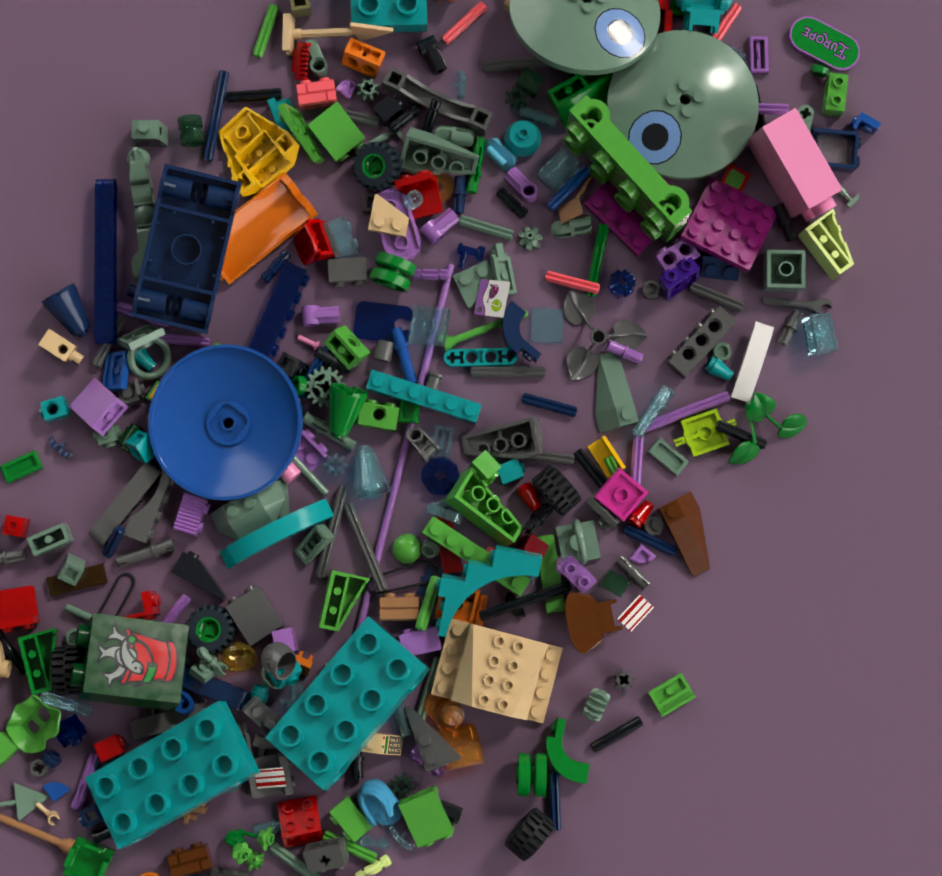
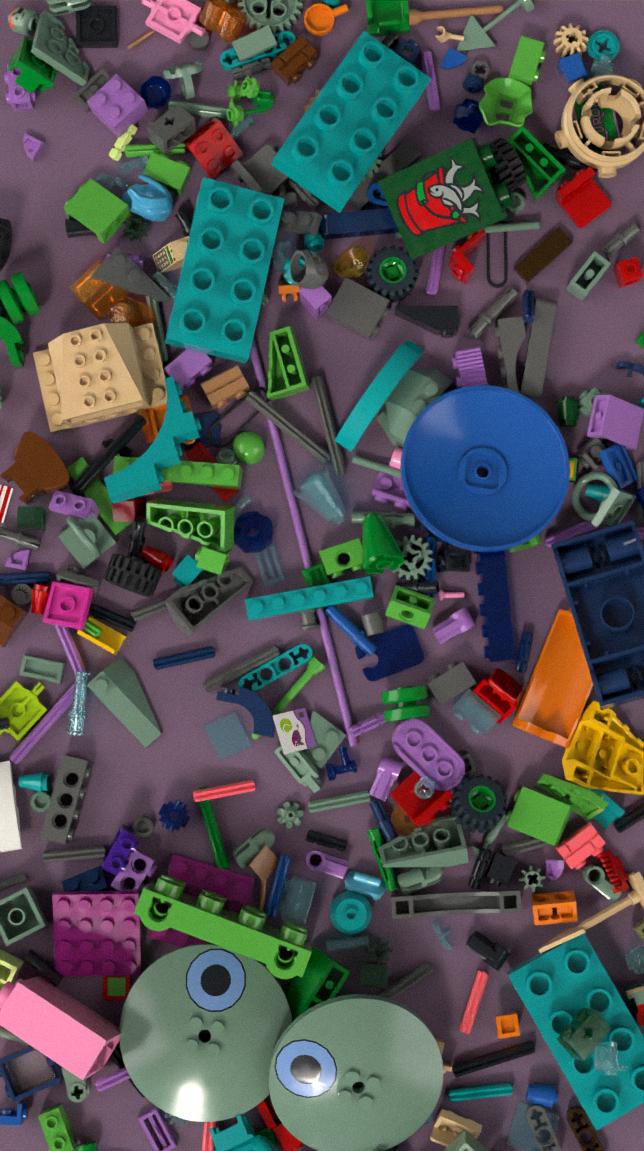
camera: 155 degrees right, 0 degrees up
(66, 704) = (491, 133): clear light blue axle -> none
(71, 569) = (553, 260): sand green panel -> none
(110, 747) = (424, 121): red brick -> none
(140, 446) = (554, 406): teal brick -> none
(202, 671) = (375, 233): sand green plate -> none
(217, 666) = (373, 243): sand green piece -> none
(270, 778) = (259, 168): sticker -> none
(300, 384) = (435, 545): green tile -> none
(324, 537) = (334, 416): sand green slope -> none
(332, 461) = (361, 484): clear light blue gear -> none
(387, 218) = (439, 754): tan wing -> none
(425, 446) = (282, 551): dark grey piece -> none
(427, 605) = (199, 403): bright green axle -> none
(429, 326) = (341, 671): clear light blue tile -> none
(431, 115) = (453, 885): black axle -> none
(444, 513) = (229, 496): clear light blue beam -> none
(582, 361) = (173, 717): dark grey plant -> none
(624, 351) = (137, 748): medium lavender axle -> none

